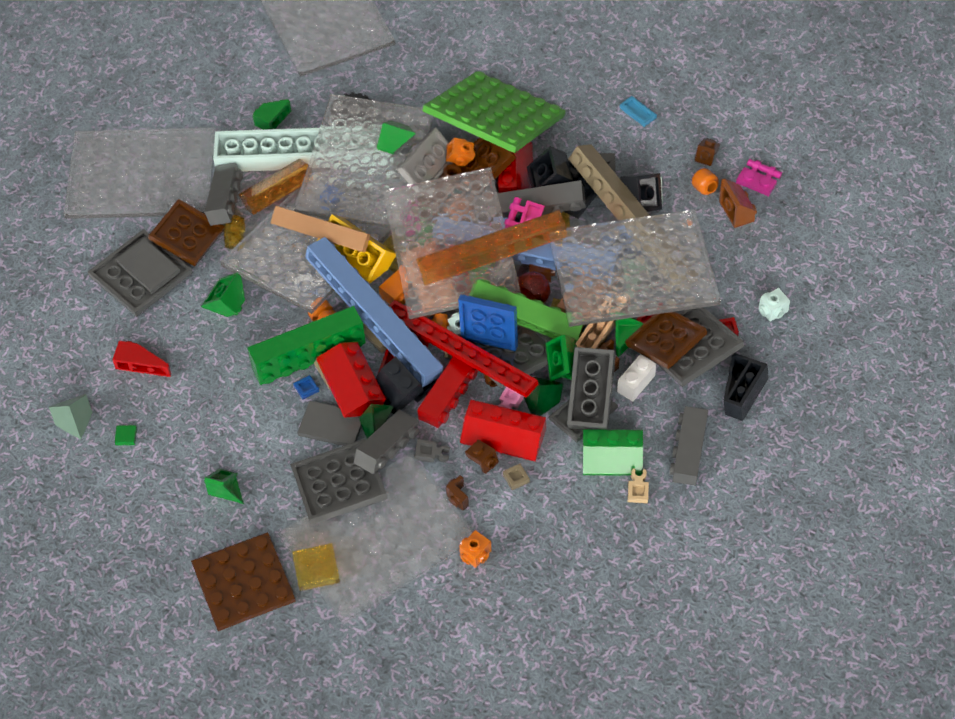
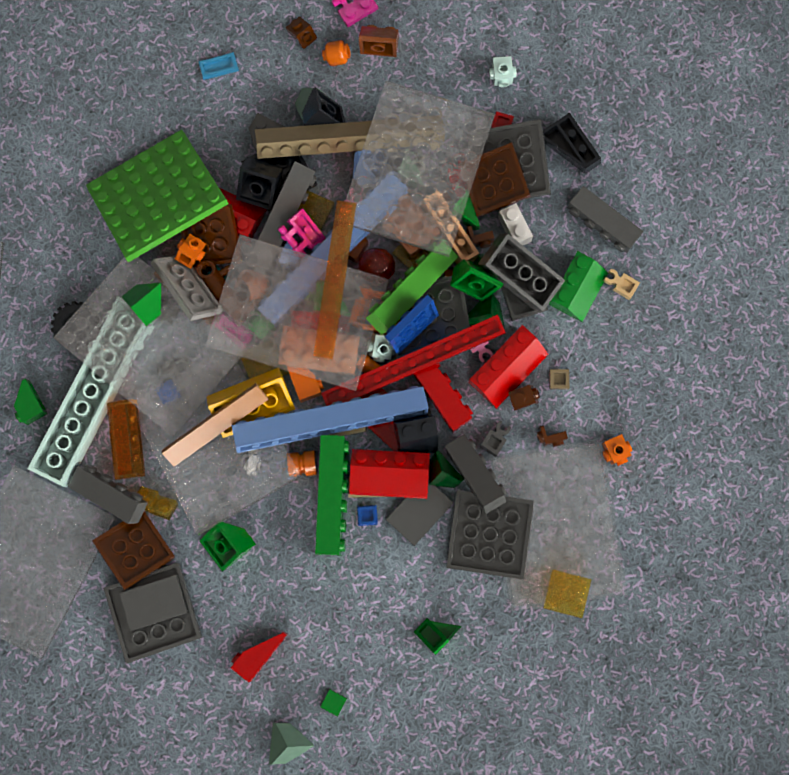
camera: 60 degrees left, 25 degrees up
(243, 581) = (542, 662): reddish brown plate -> none

